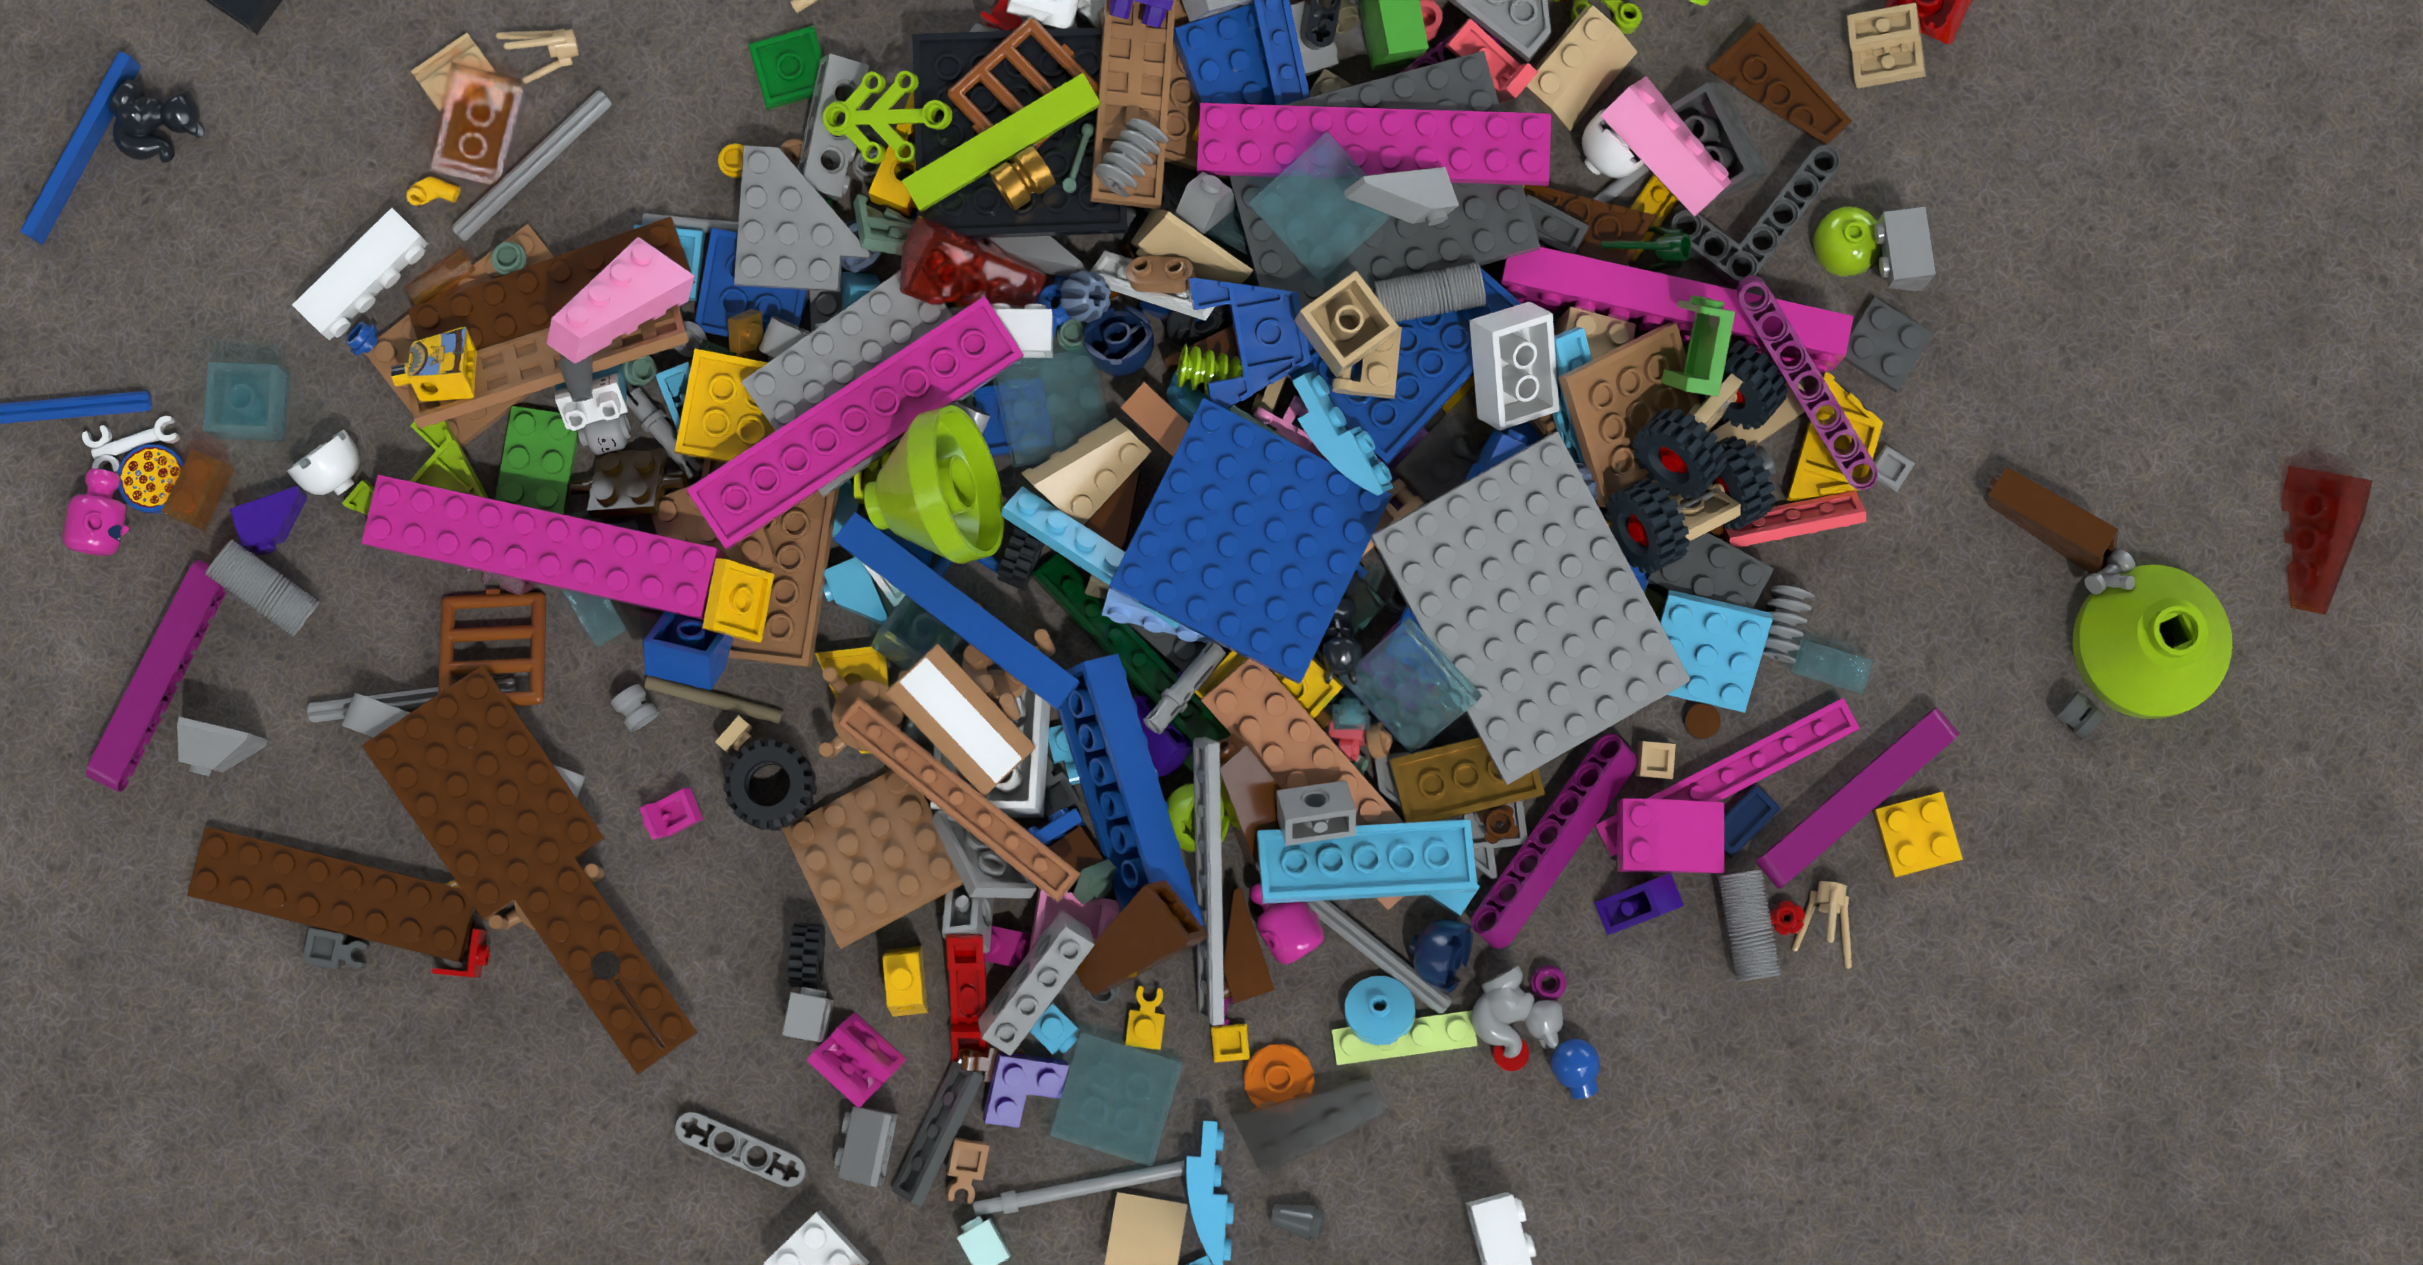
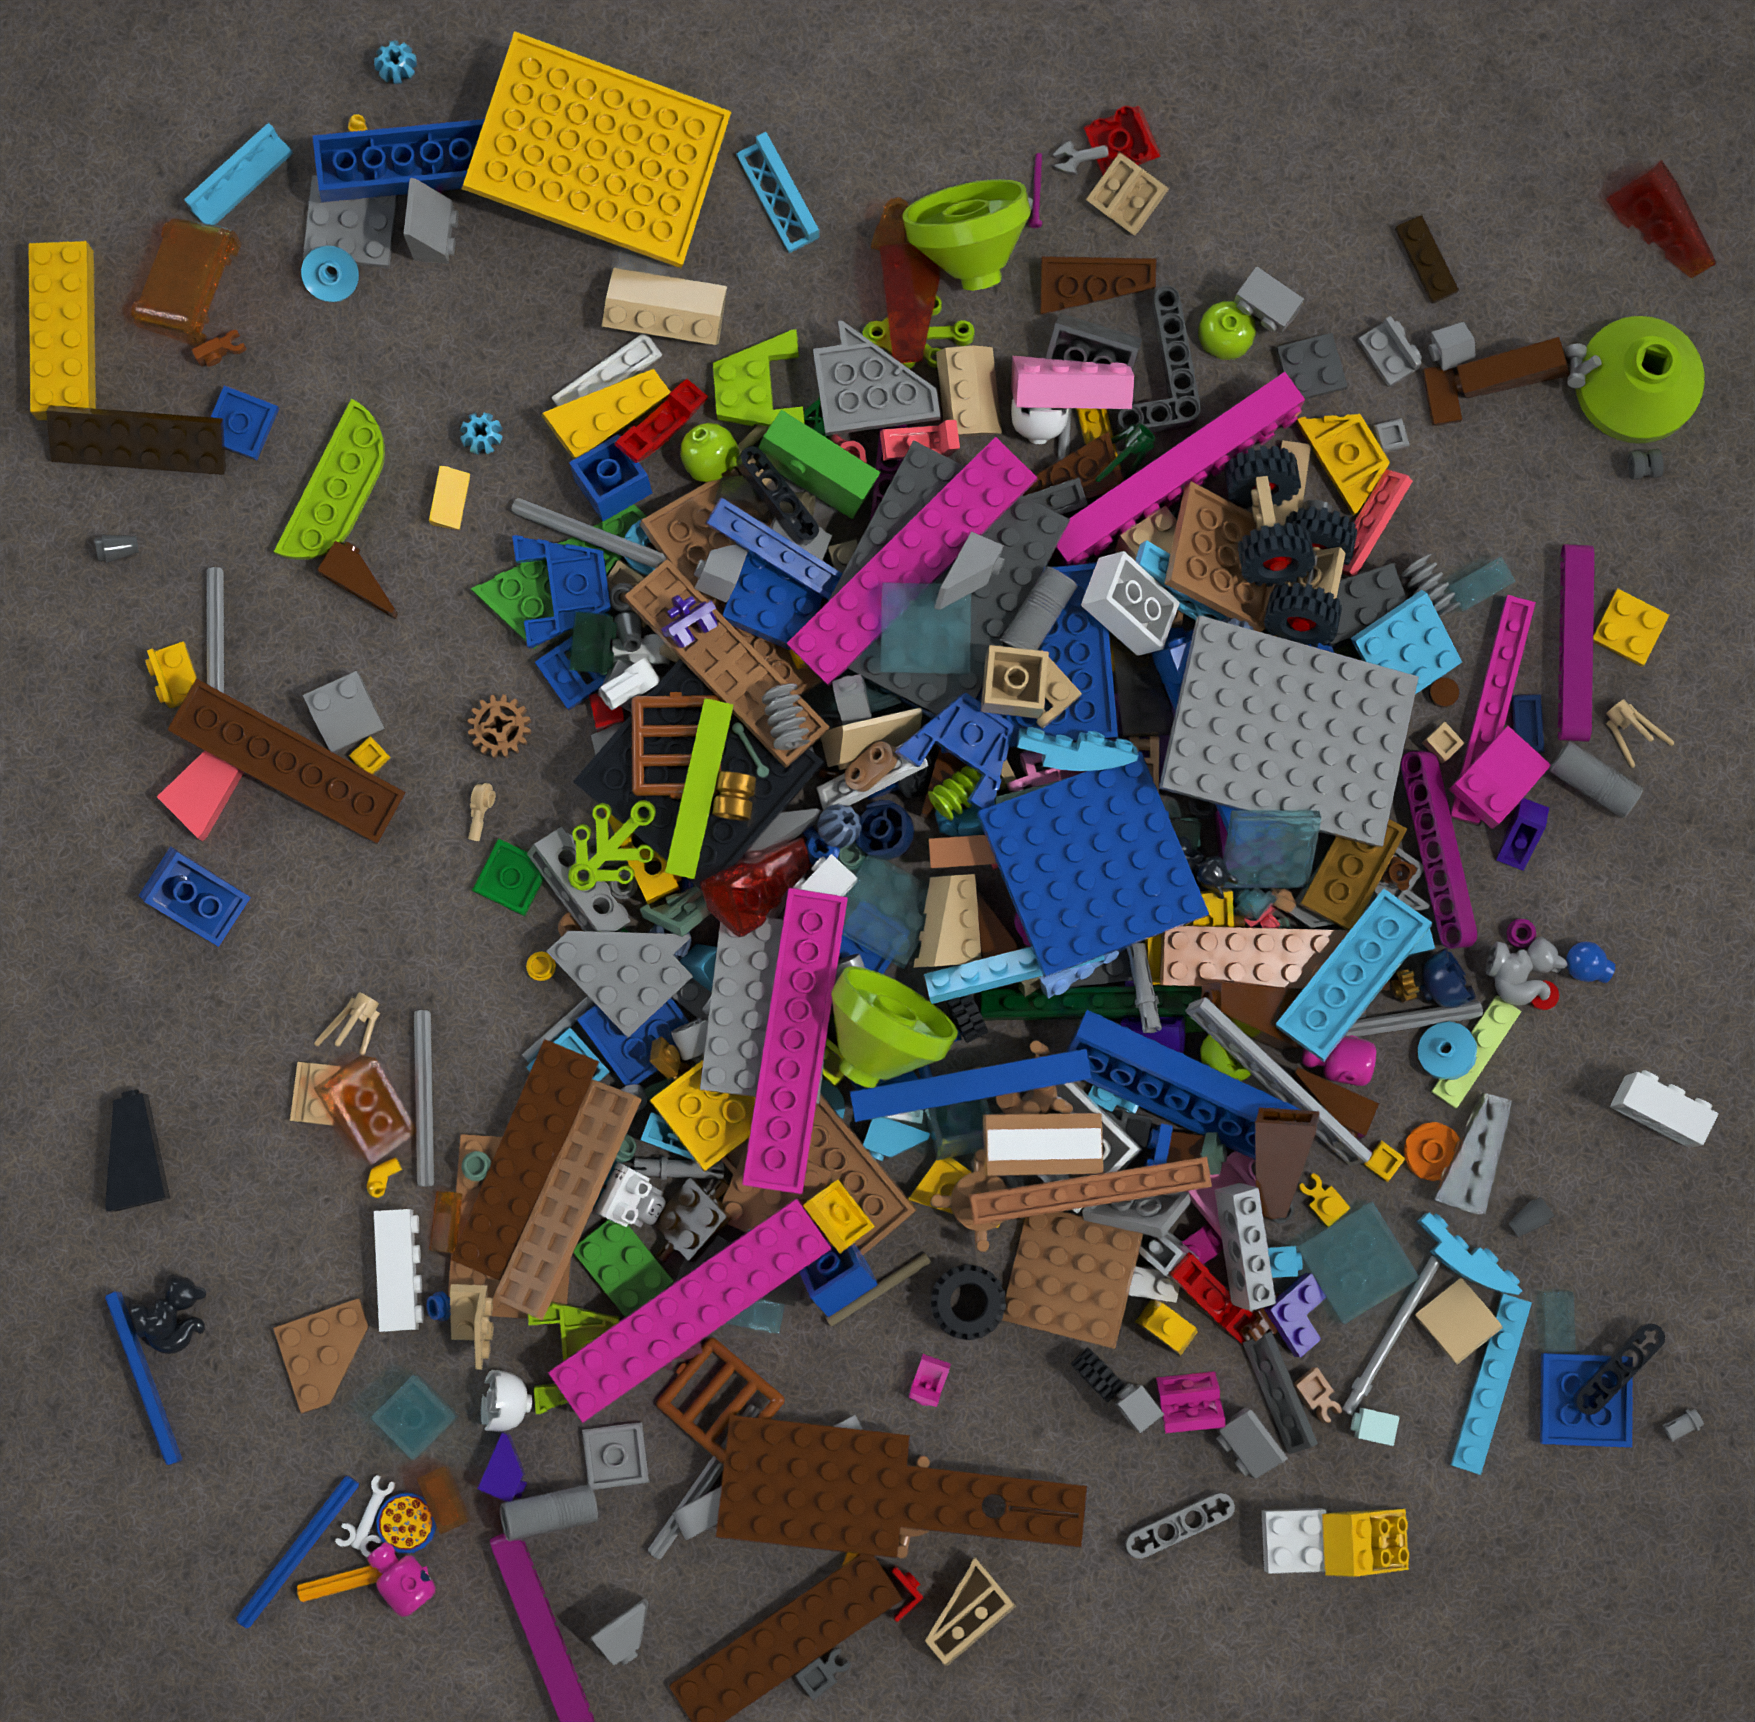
camera: 50 degrees left, 0 degrees up
(47, 465) = (338, 1583): none -> light orange axle
(236, 276) = (320, 1351): none -> medium nougat plate
(367, 604) = (615, 1456): none -> light grey tile
(370, 374) = (470, 1318): none -> tan bracket
(440, 367) = (515, 1271): yellow torso -> none
(495, 1031) = (969, 1614): none -> tan wedge
(578, 377) = (603, 1186): dark grey cone -> none
(623, 295) = (580, 1111): bright pink wedge -> none
(635, 707) = (840, 1343): light grey wheel -> none
(735, 736) = (916, 1296): tan plate -> none
(927, 928) = (1152, 1284): none -> white plate
(1316, 813) = (1298, 978): light grey brick -> none
(1401, 919) = (1404, 986): none -> pearl gold plate
(1706, 347) = (1228, 479): bright green panel -> none
(1785, 927) = (1611, 744): red plate -> none
(1812, 399) = (1289, 433): magenta beam -> none
(1965, 400) = (1390, 351): none -> light grey bracket
(1970, 480) = (1442, 396): none -> reddish brown tile
(2021, 448) = (1452, 346): none -> light grey brick
(2080, 358) = (1426, 259): none -> dark brown plate

